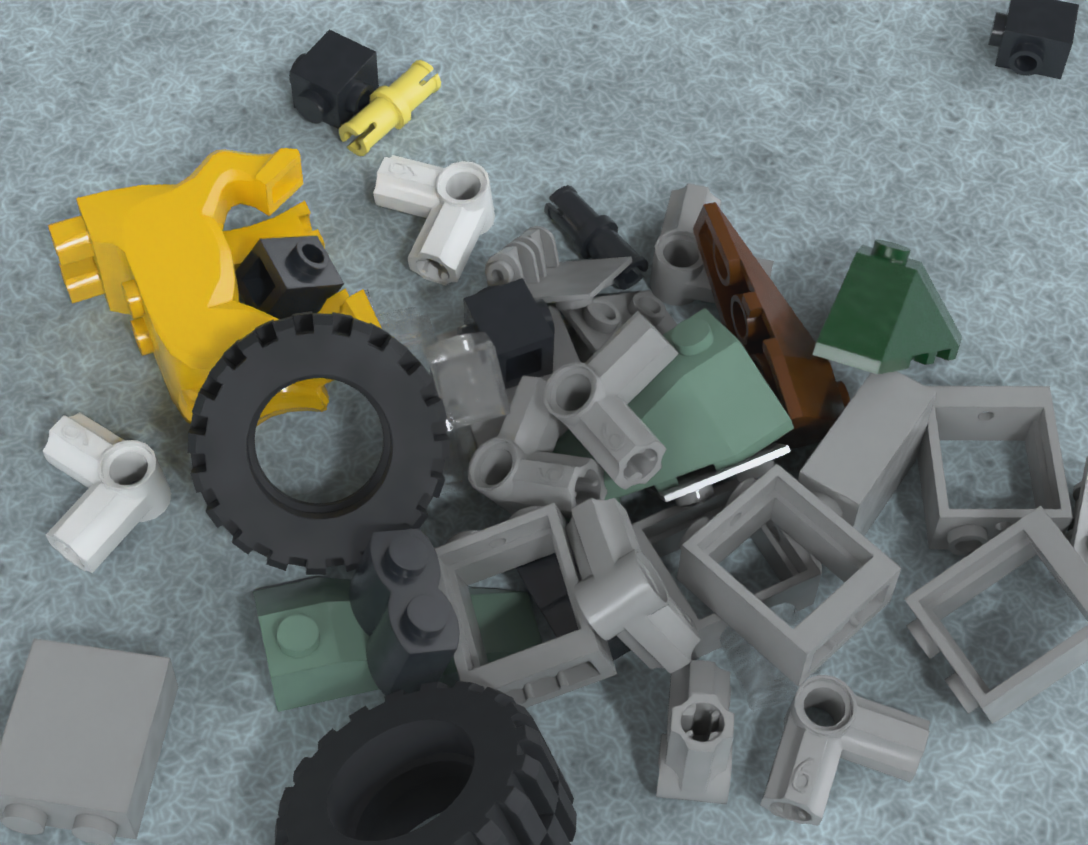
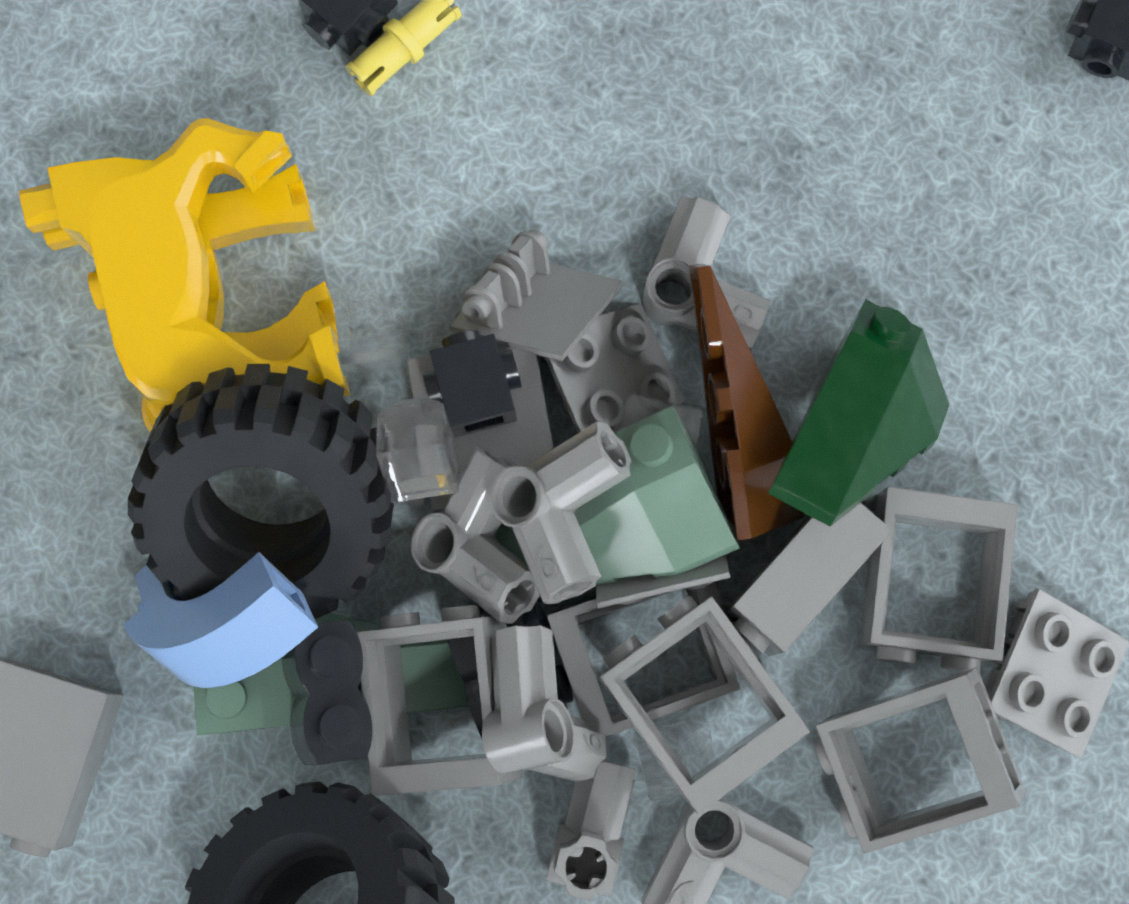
camera: 10 degrees right, 25 degrees up
(110, 504) = (66, 505): white piece -> none
(287, 276) = (267, 264): black brick -> none
(288, 553) = (225, 632): none -> light blue arch
(453, 201) = (431, 163): white piece -> none
(594, 234) = (592, 234): black pin -> none

